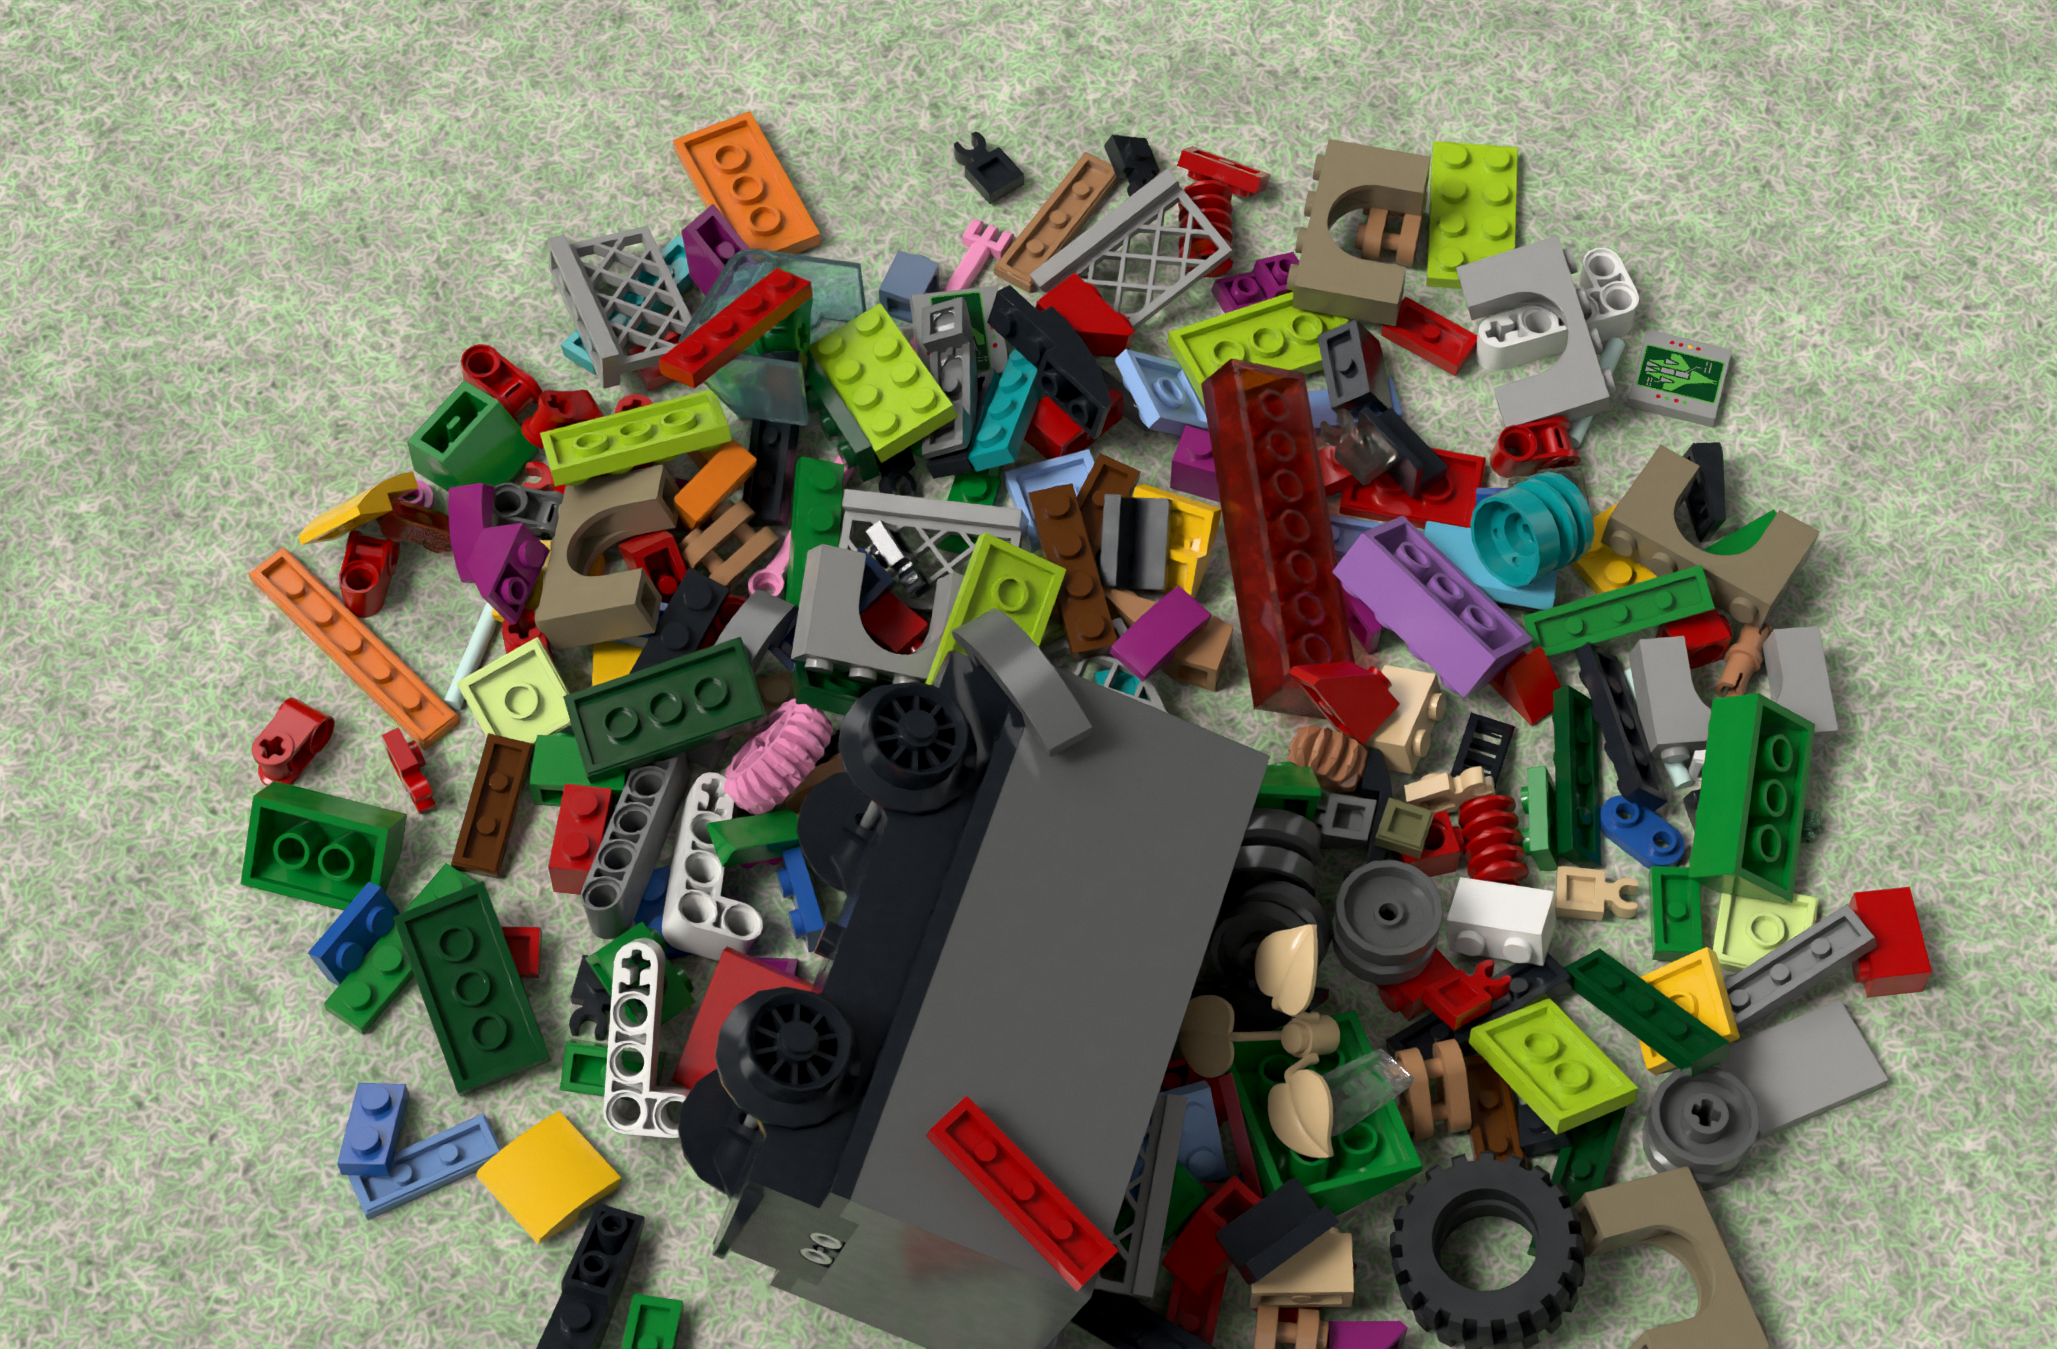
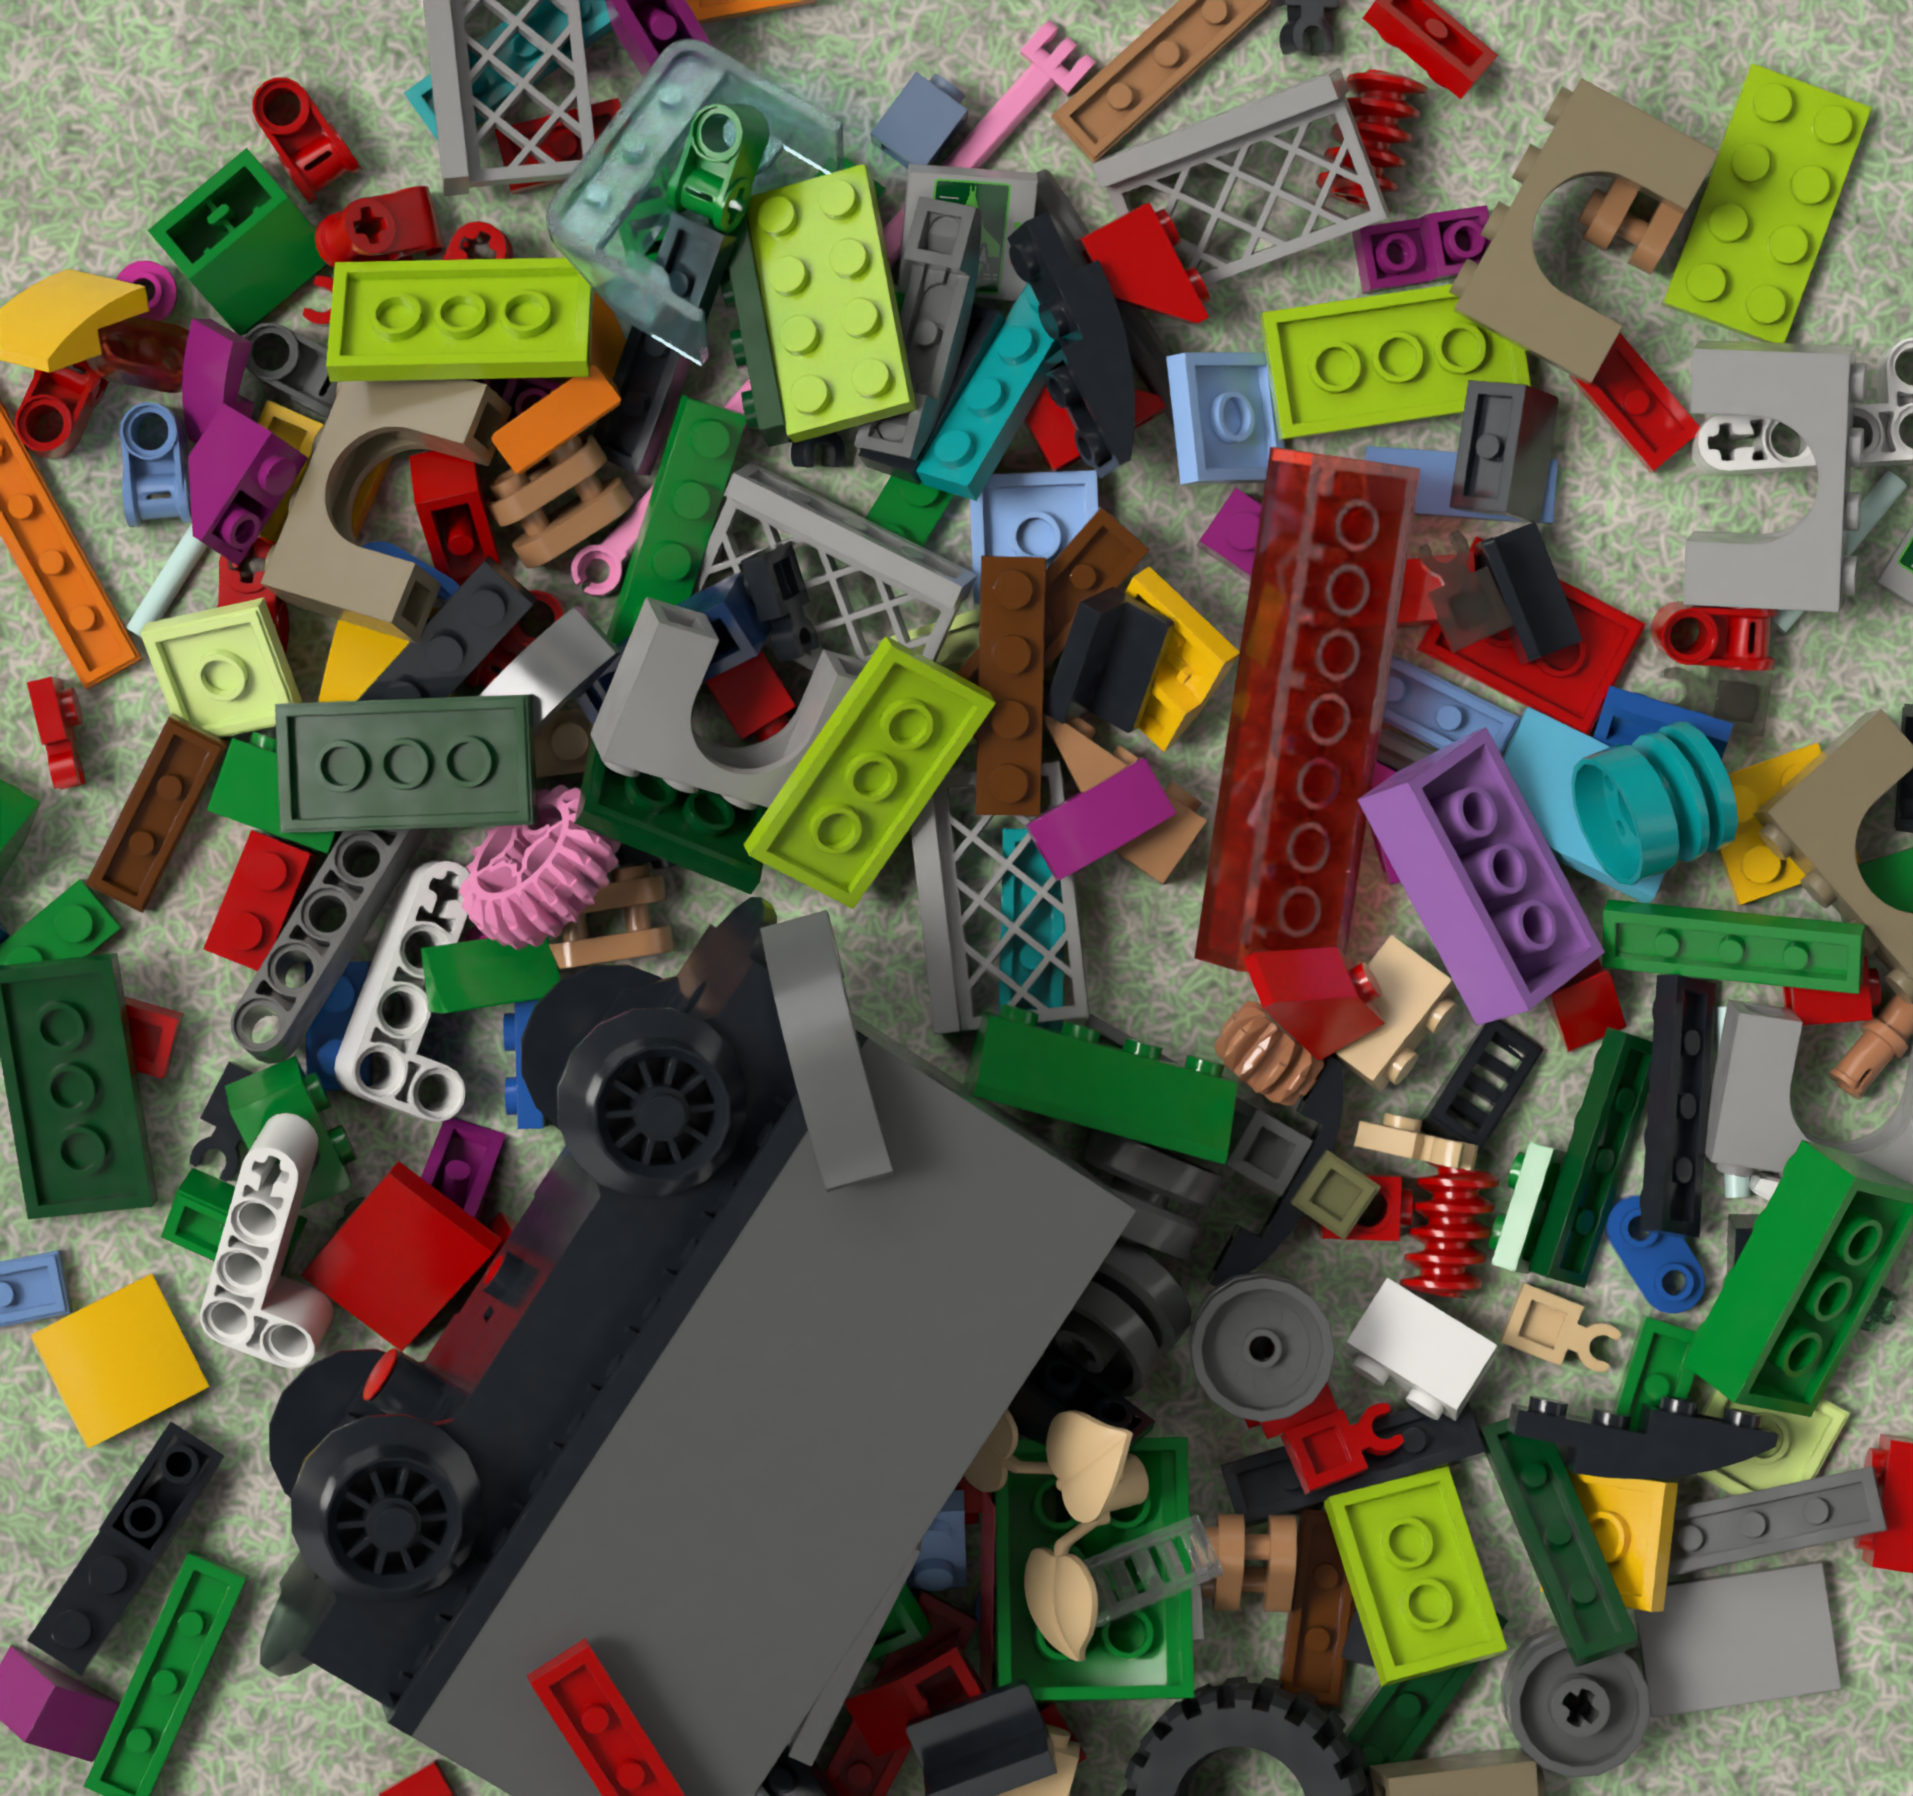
camera: 20 degrees right, 30 degrees up
(444, 598) = (154, 470): none -> medium blue piece
(735, 328) = (631, 215): red plate -> none
(1694, 925) = (1666, 1443): none -> black slope

